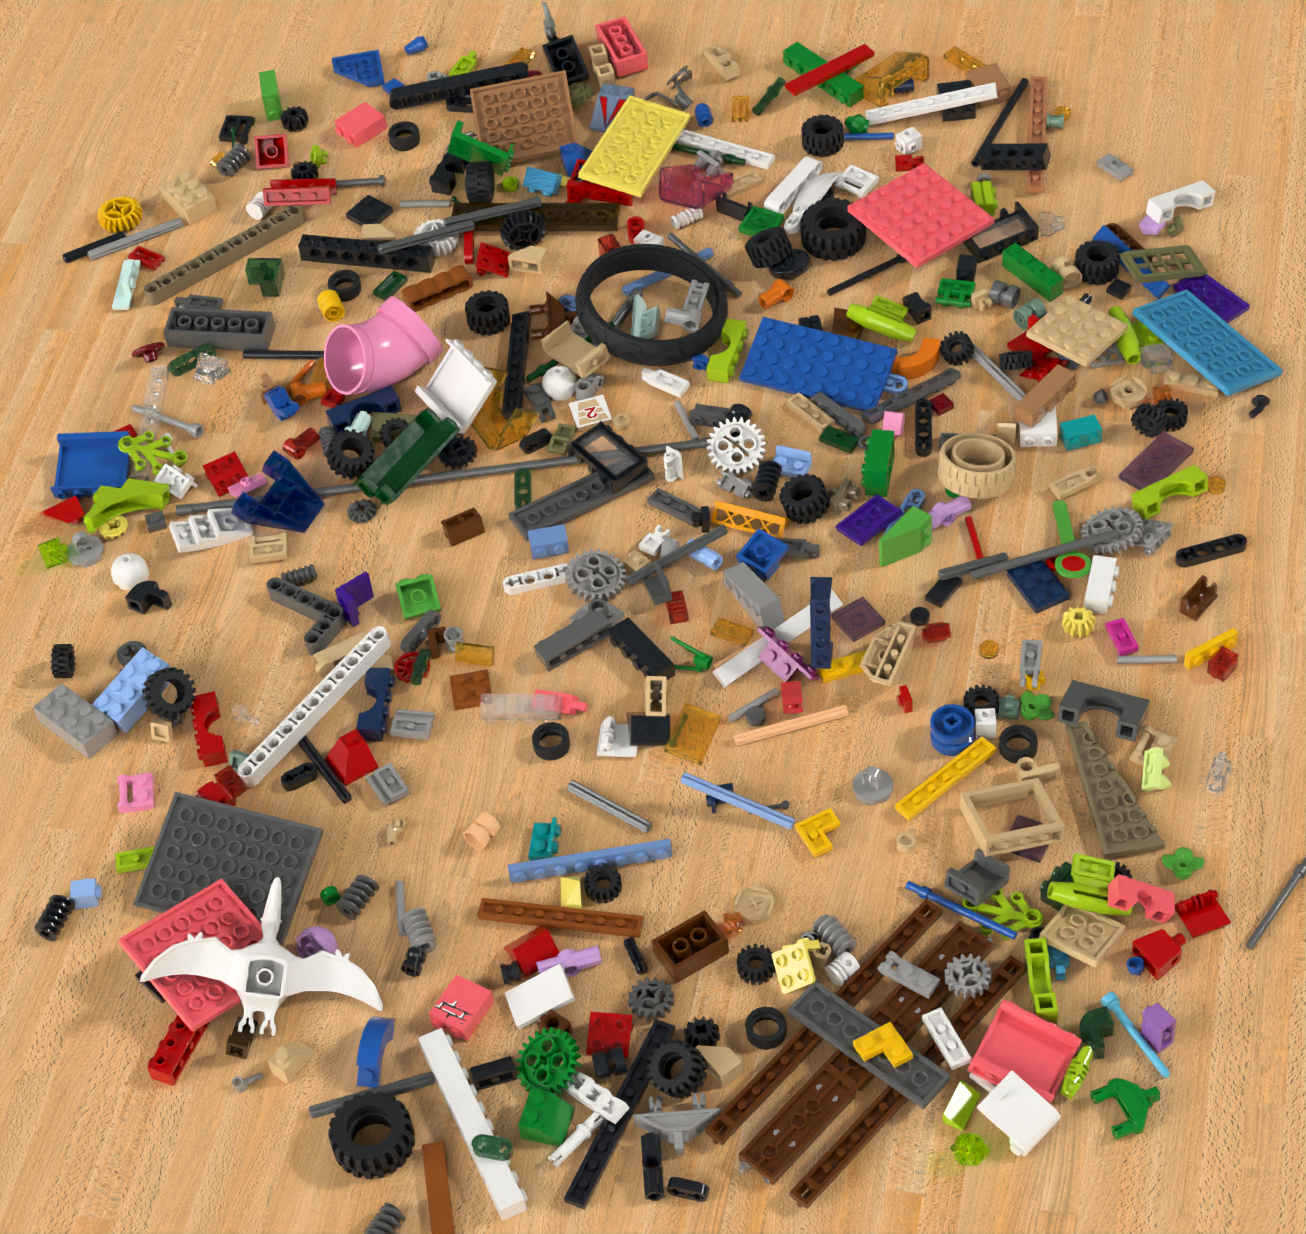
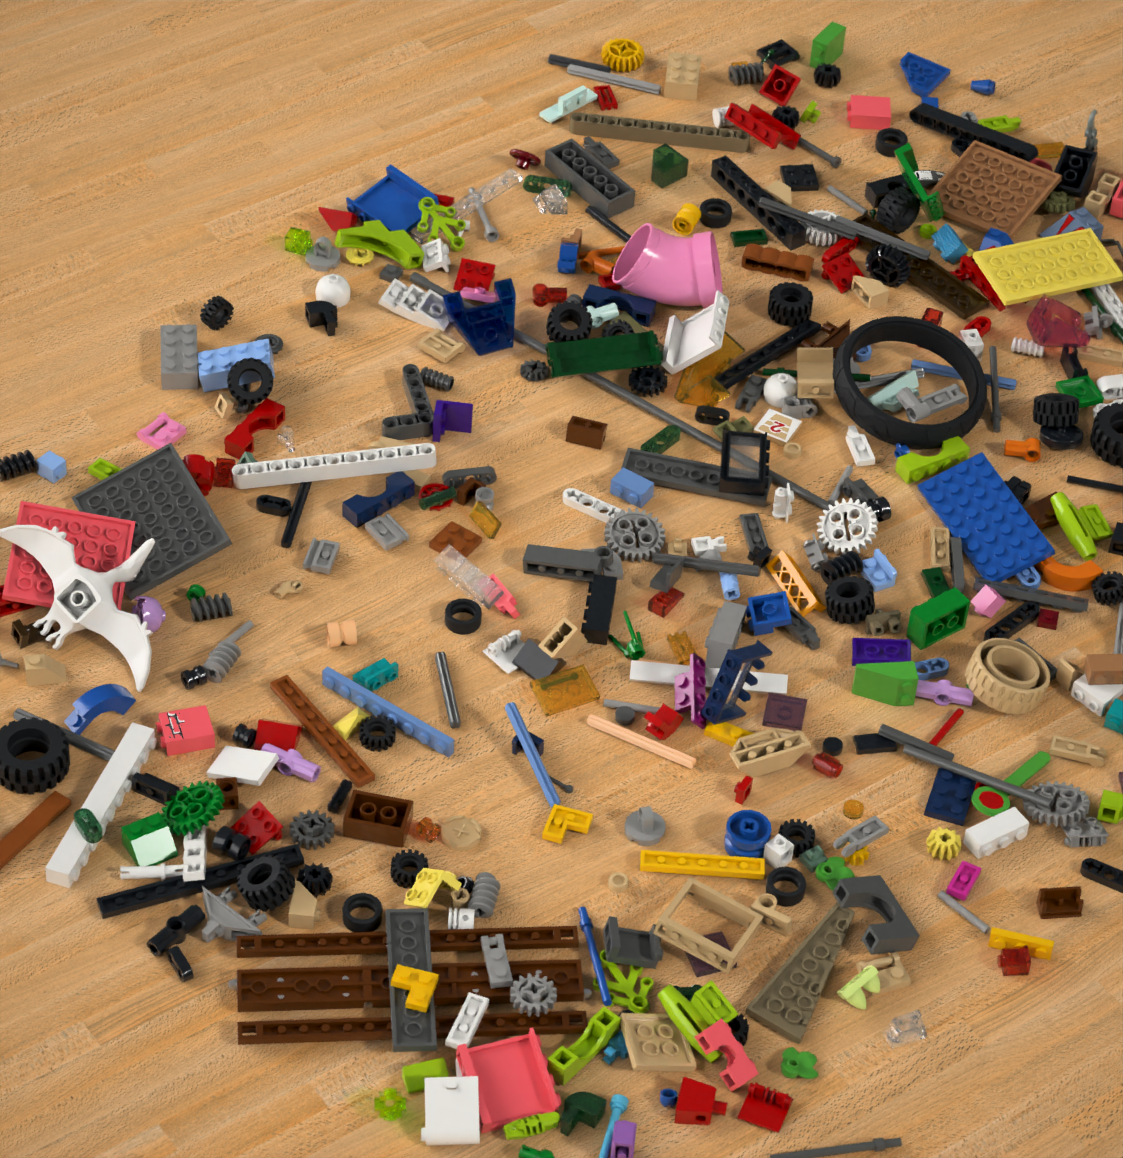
camera: 35 degrees right, 5 degrees down
(351, 758) = (320, 520): red slope -> none
(417, 596) = (496, 452): bright green plate -> none

